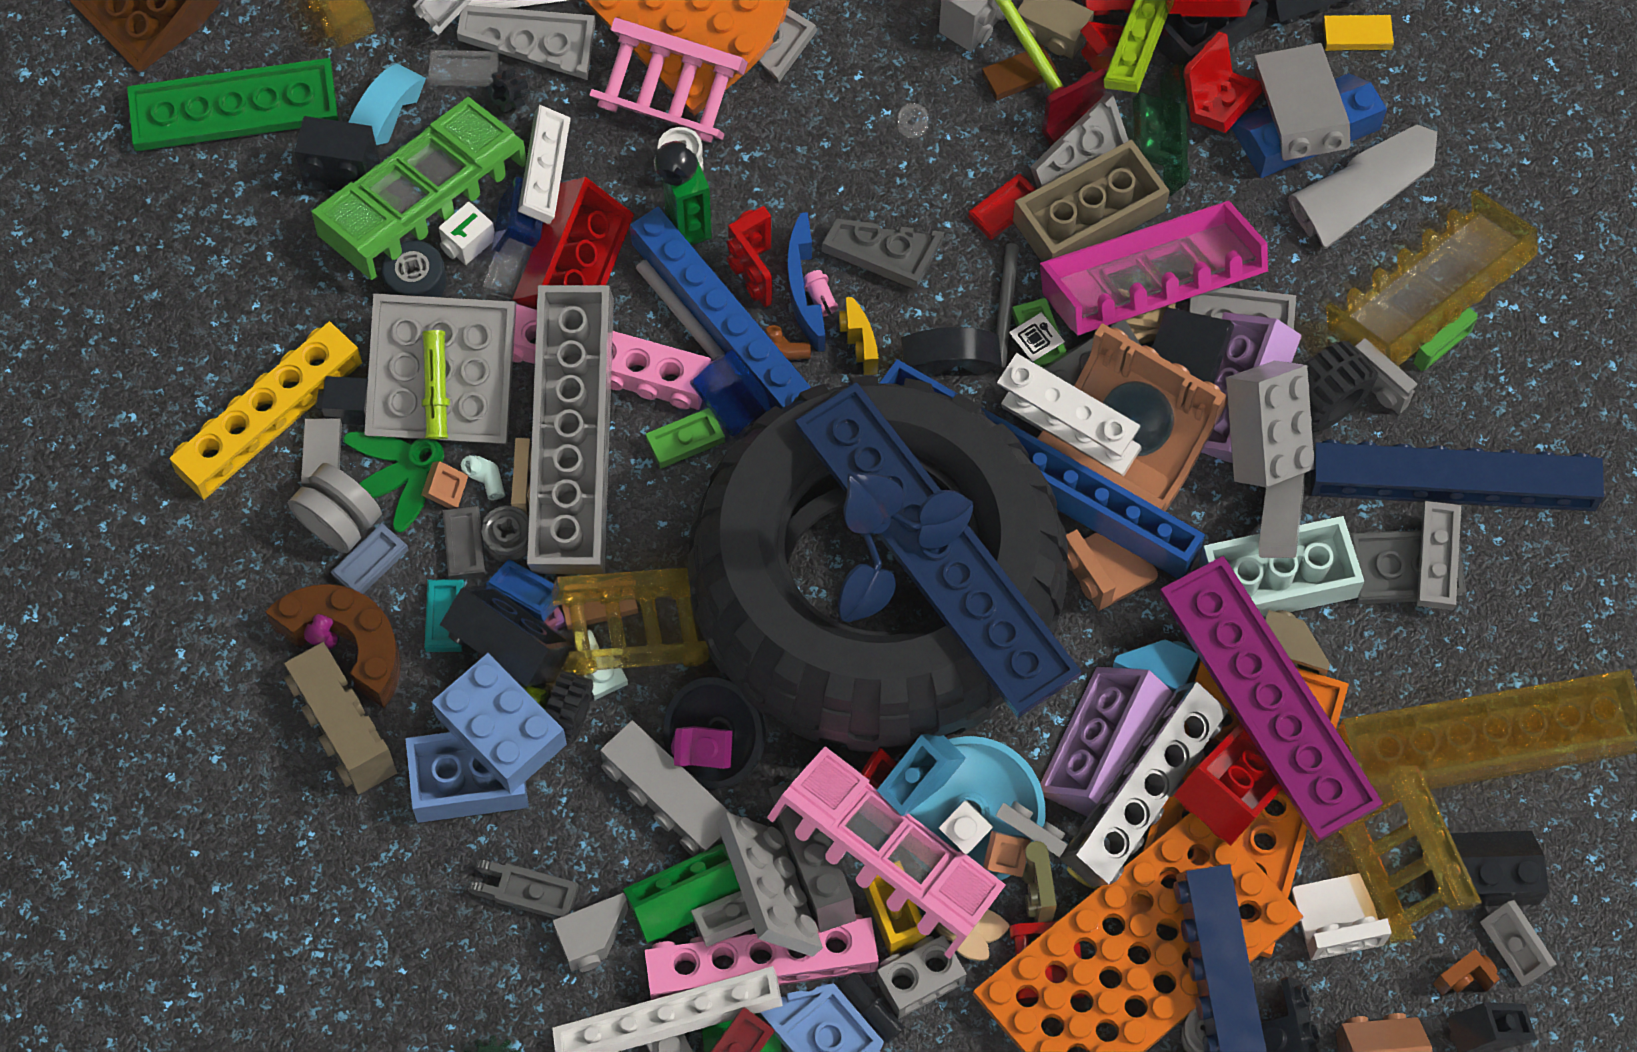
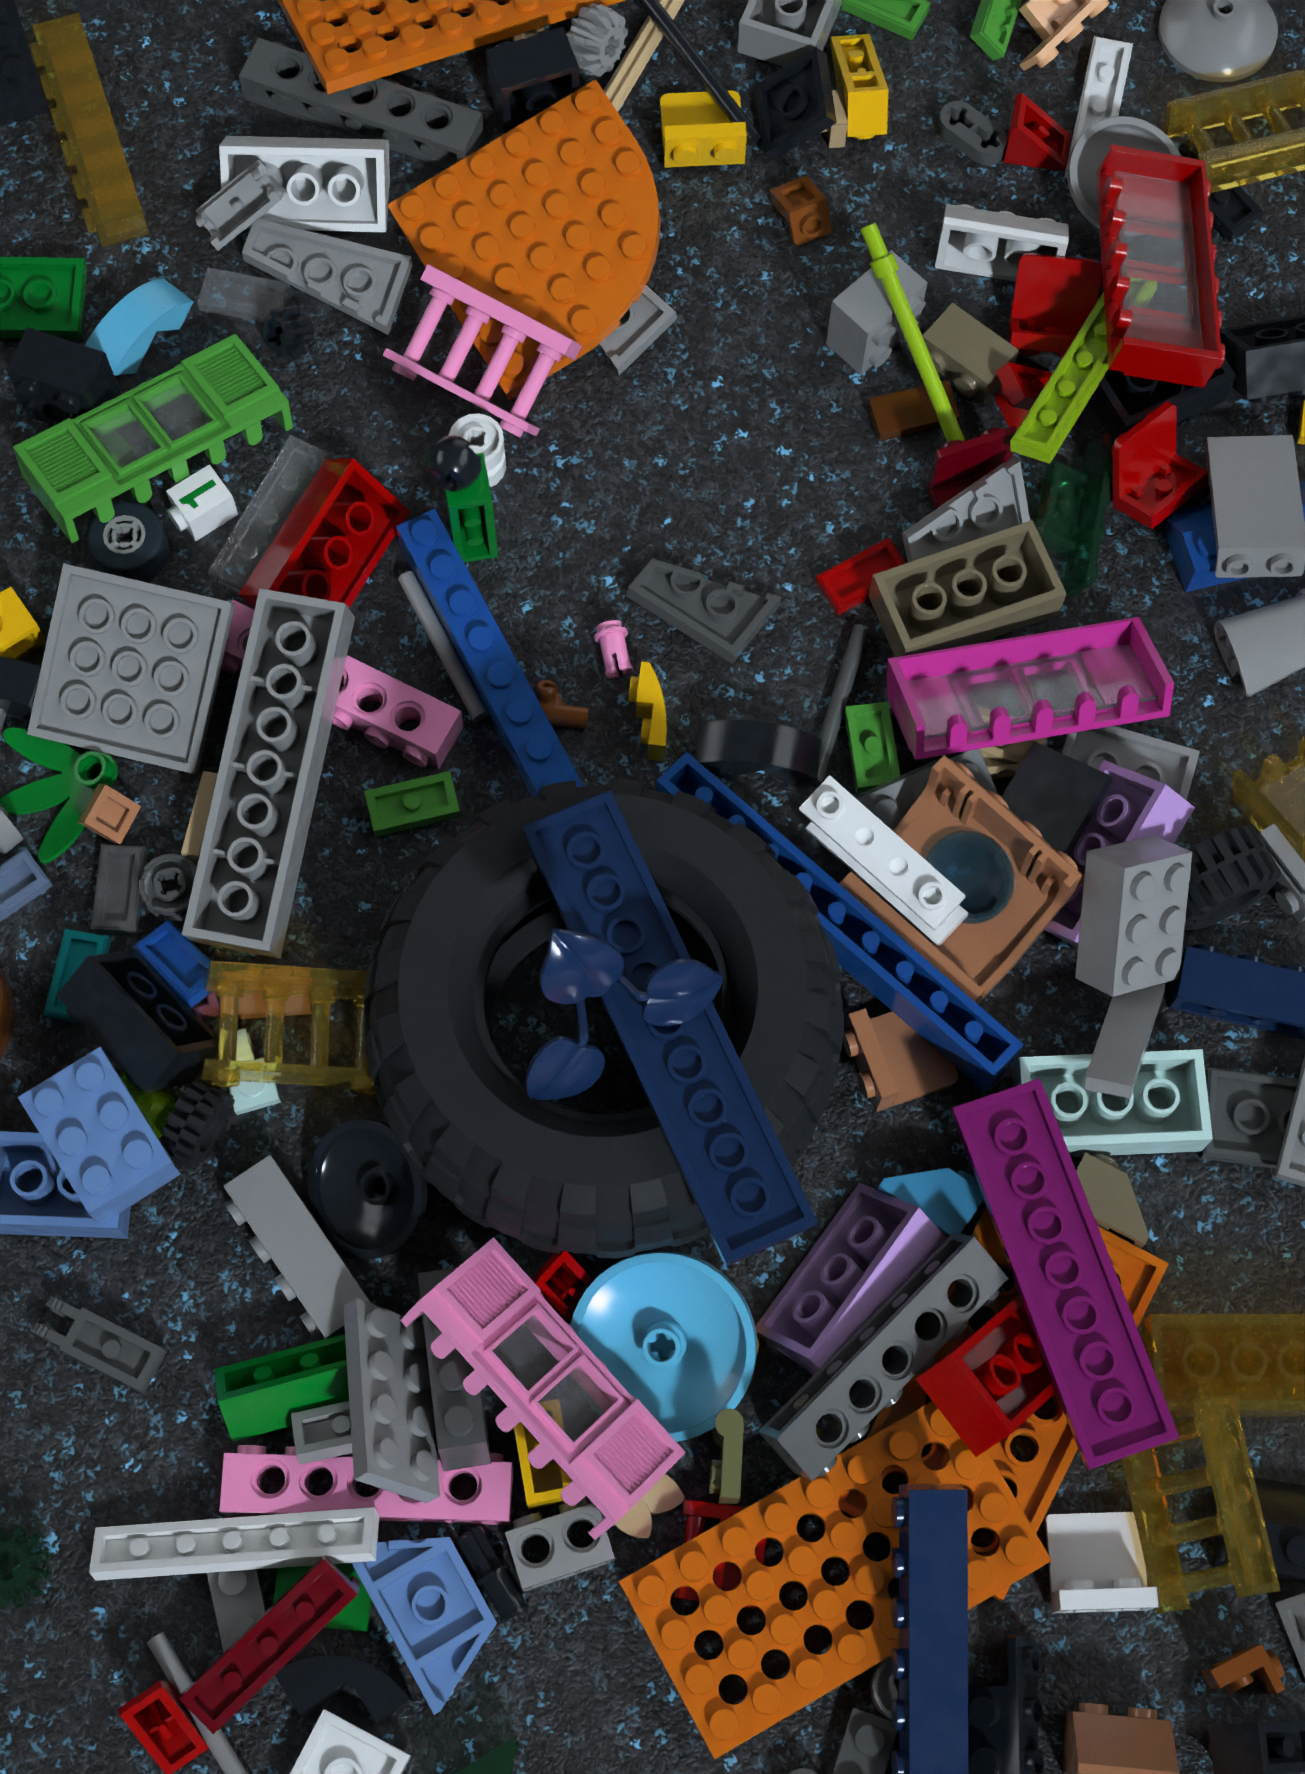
camera: 10 degrees right, 5 degrees up
(435, 385) = (117, 689): lime pin -> none
(486, 473) = (164, 806): light aqua arm -> none
(513, 223) = (269, 490): clear blue panel -> none
(544, 164) = (310, 433): white tile -> none
(590, 932) = (165, 1415): light grey slope -> none
(702, 747) = (347, 1205): magenta bracket -> none
(731, 392) = (477, 758): clear blue panel -> none
(747, 240) = (534, 568): red bracket -> none
(808, 317) = (598, 588): blue slope -> none
(906, 114) = (778, 459): clear bush -> none
(920, 773) = (605, 1293): dark azure slope -> none
(966, 827) = (650, 1371): white brick -> none
(1006, 853) = (694, 1412): nougat plate -> none
(1019, 818) = (718, 1374): light grey plate -> none
(1036, 337) = (867, 750): white sticker -> none

